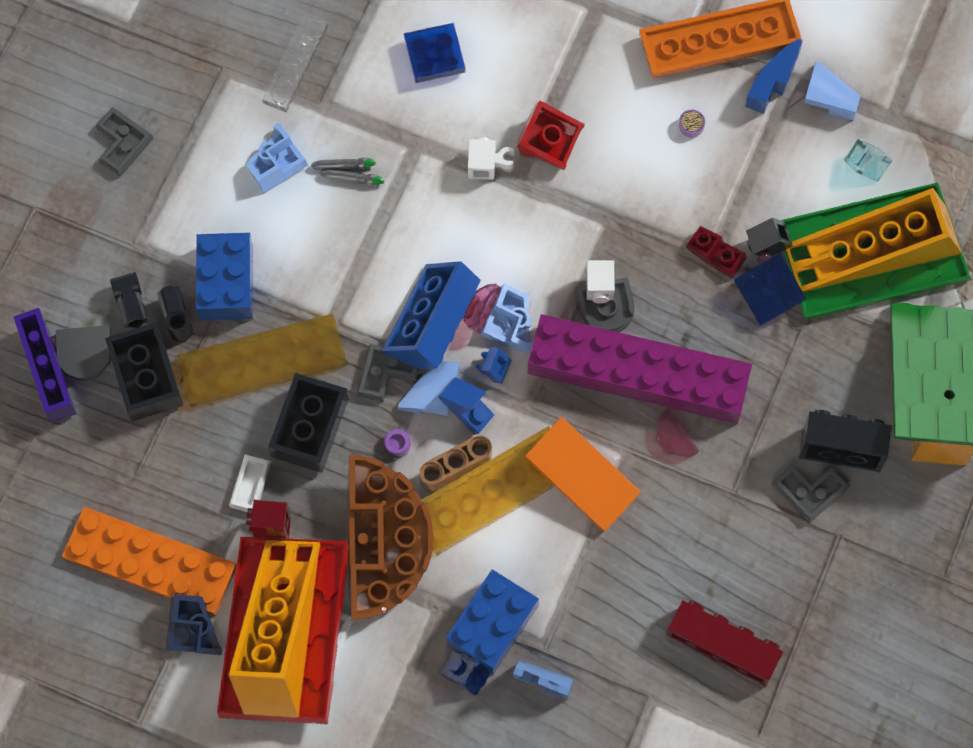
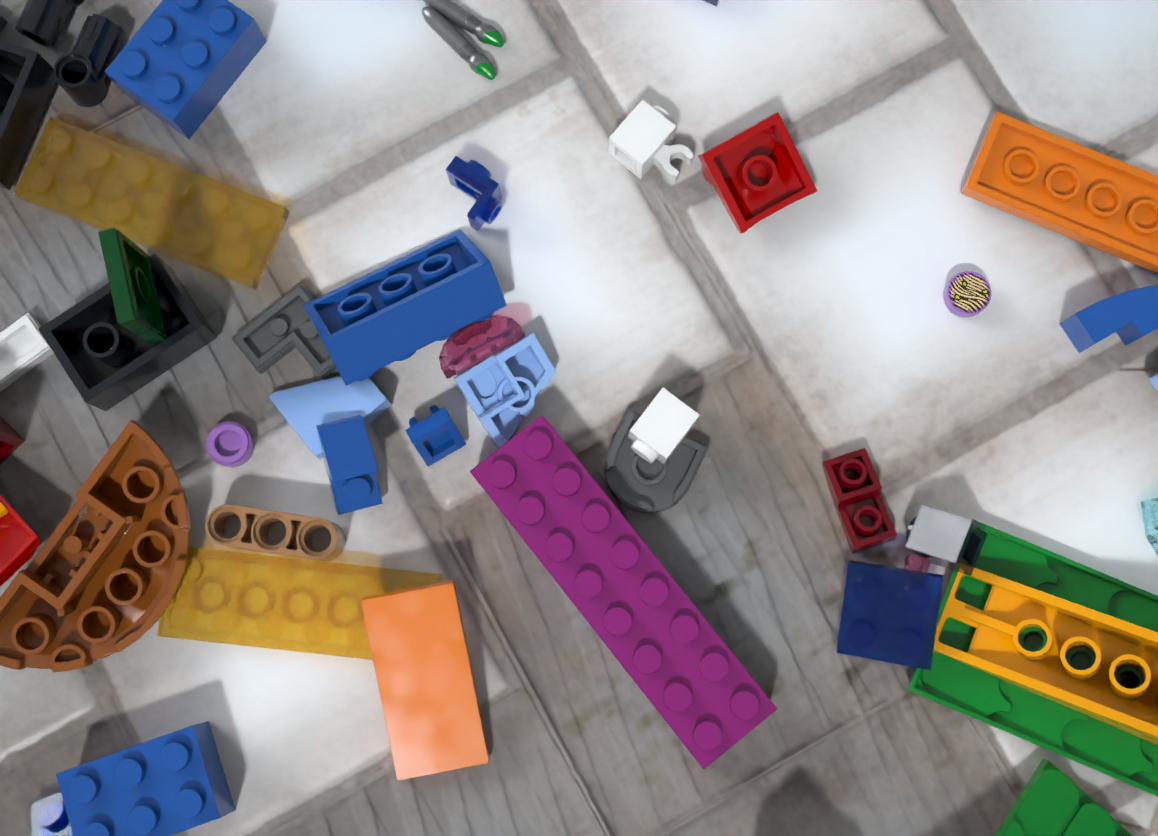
camera: 40 degrees right, 10 degrees up
(308, 385) = (132, 286): none -> dark green tile
(418, 235) = (476, 183): none -> clear blue bracket
(673, 436) = (595, 716): clear pink tile -> none

